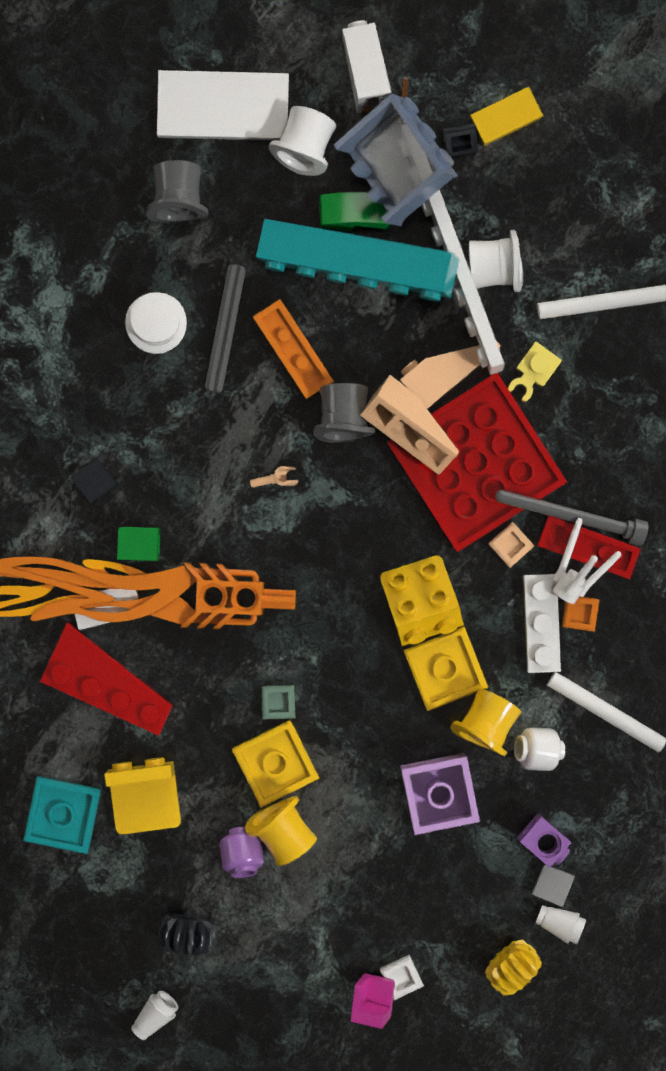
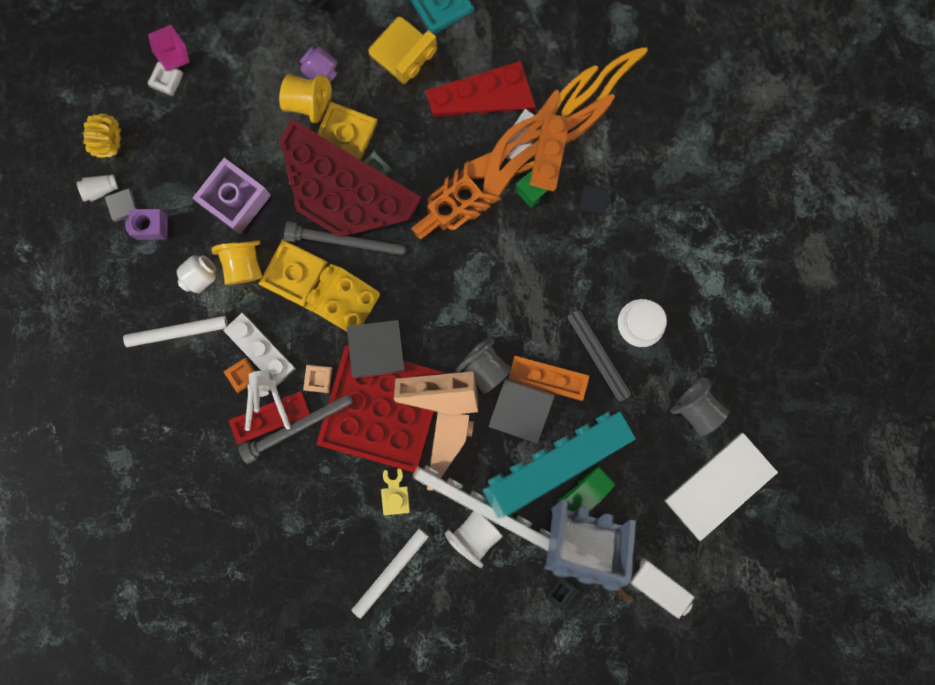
camera: 140 degrees right, 5 degrees down
(96, 562) = (549, 151): none -> orange plate
(278, 477) = (488, 296): light nougat hand -> none
(304, 141) = (654, 507): white piece -> none
(328, 709) = (340, 188): none -> dark red plate
(345, 341) = (521, 410): none -> dark grey tile
(408, 705) = (294, 232): none -> dark grey piece
(432, 521) = (375, 349): none -> dark grey tile
(506, 116) = (547, 634): yellow tile -> none

